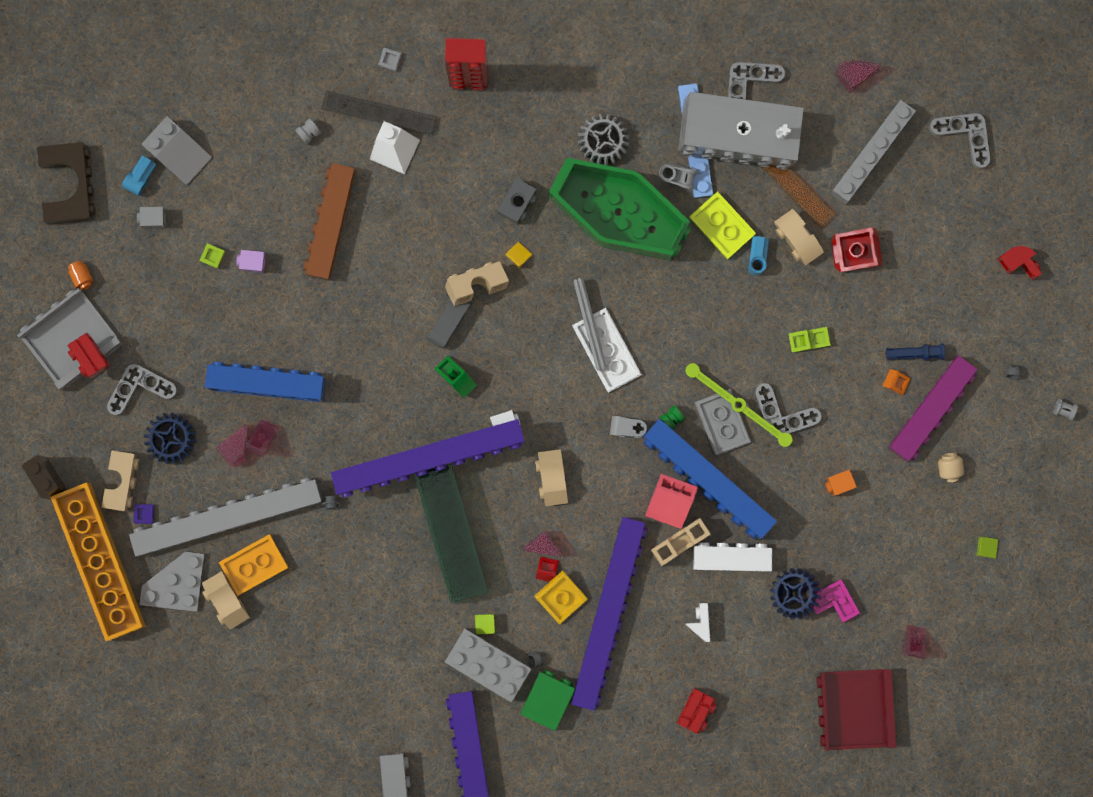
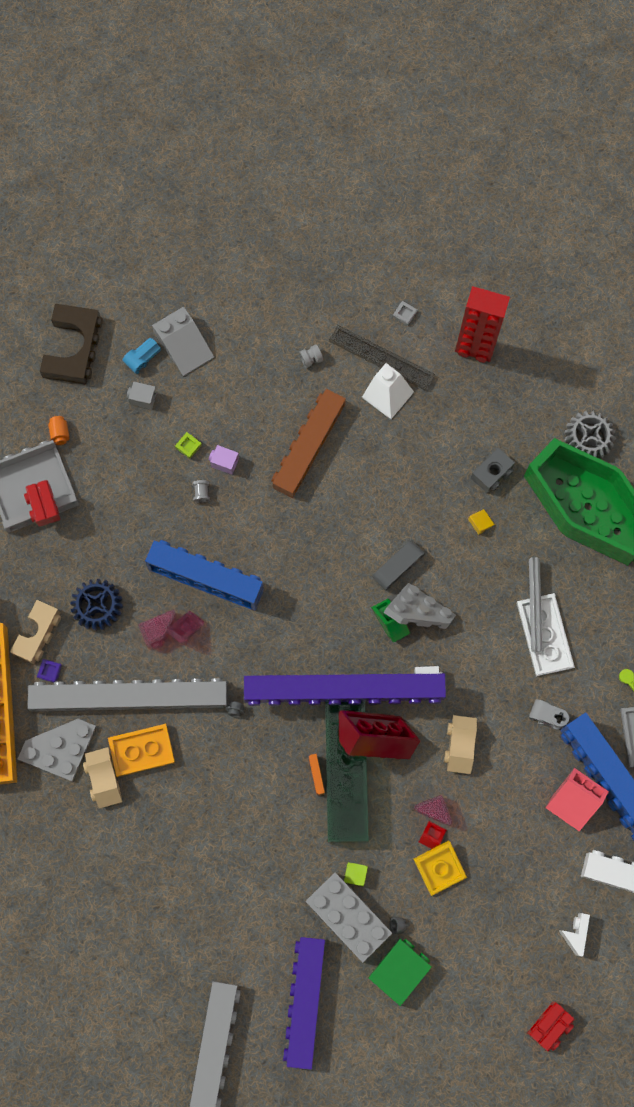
camera: 15 degrees right, 10 degrees down
(141, 380) = (83, 542): light grey beam -> none
(238, 299) = (201, 491): none -> light grey bush
(424, 543) = (316, 775): none -> orange tile
(469, 493) = (376, 735): none -> dark red slope
(479, 359) = (417, 607): none -> light grey plate
(490, 276) = (449, 533): tan arch -> none
(608, 613) = (483, 899): dark purple brick -> none
(672, 418) = (598, 716): green wheel -> none
(680, 542) = (575, 844): tan arch -> none

